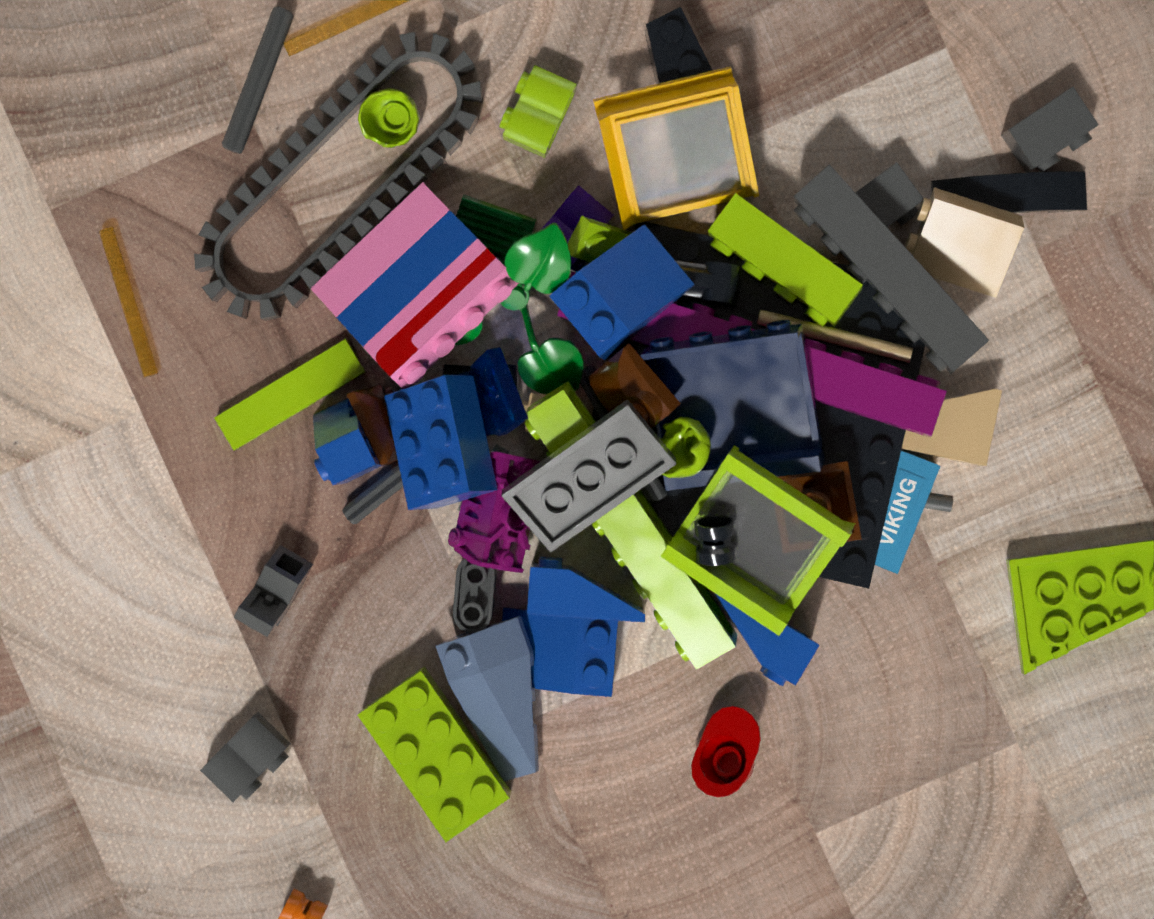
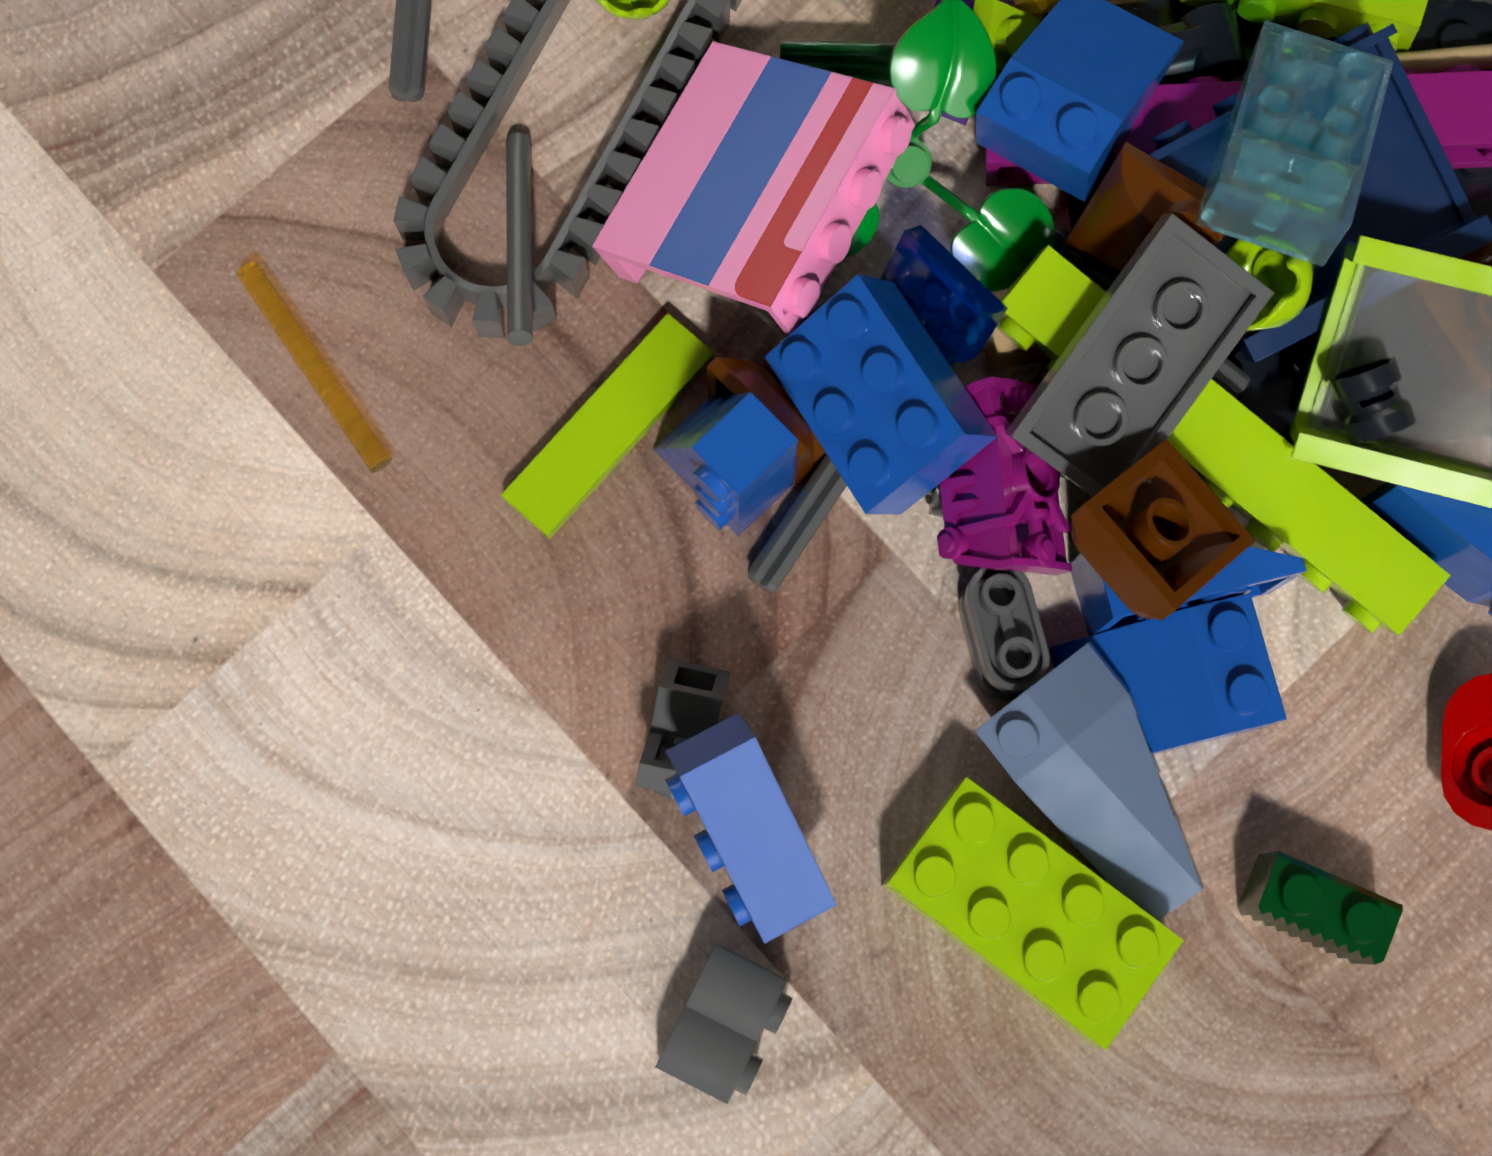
camera: 20 degrees left, 10 degrees down
(269, 268) = (519, 240): none -> dark grey bar
(285, 664) = (748, 829): none -> wedge
(563, 578) = (1157, 533): none -> reddish brown slope
(597, 803) = (1320, 908): none -> dark green brick
(718, 382) = (1296, 144): none -> clear light blue slope

